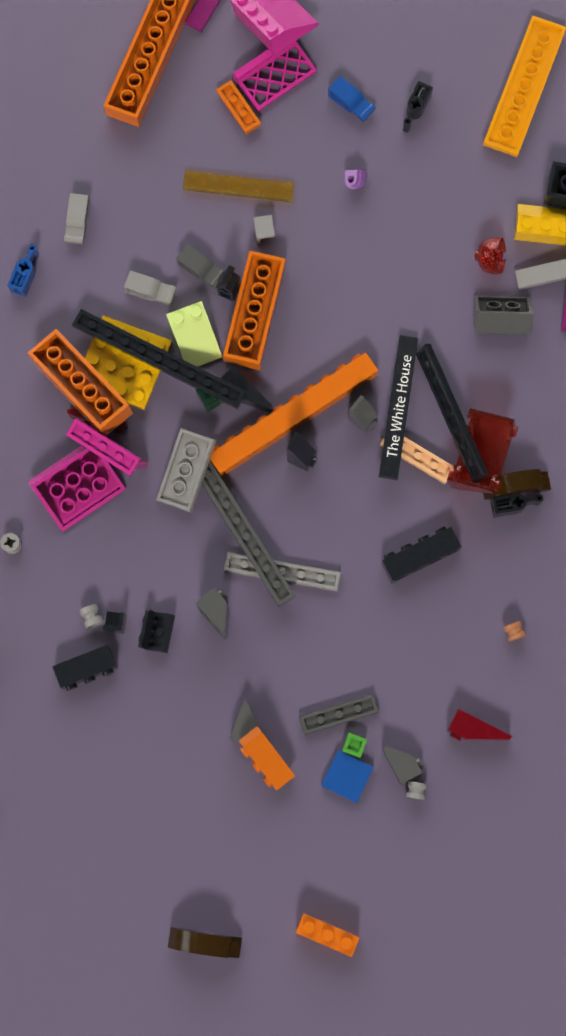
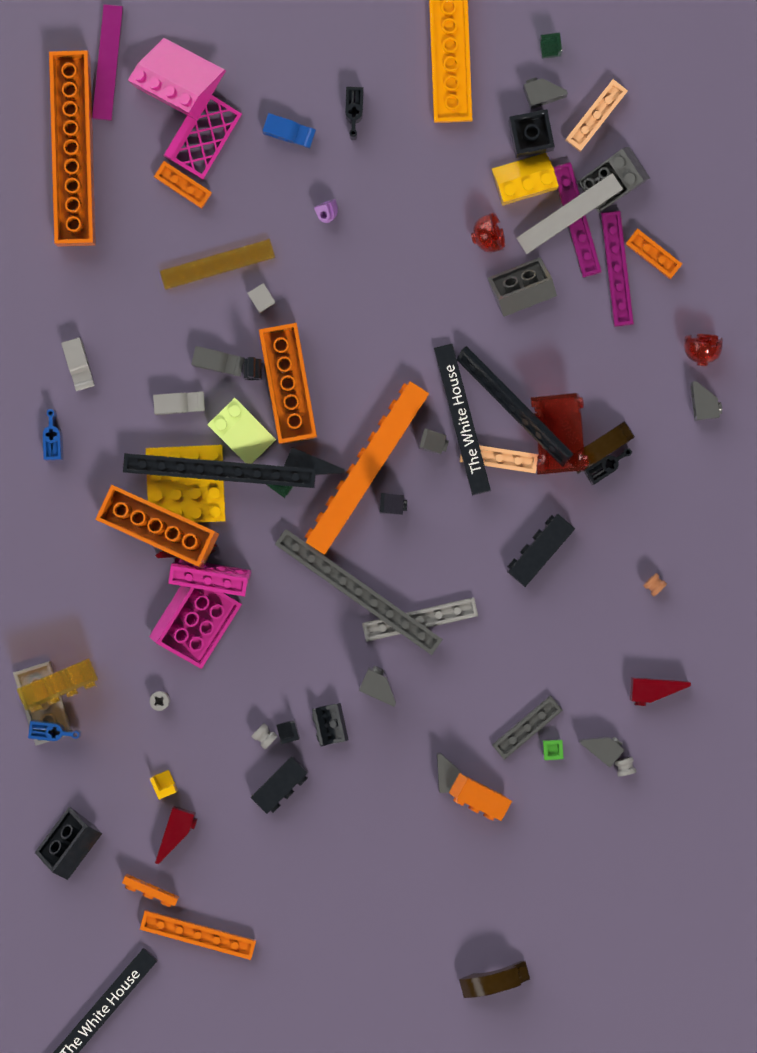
camera: 25 degrees left, 10 degrees up
(186, 470) = (291, 564): light grey tile -> none
(327, 934) = (599, 926): orange brick -> none
(347, 776) = (558, 779): blue tile -> none

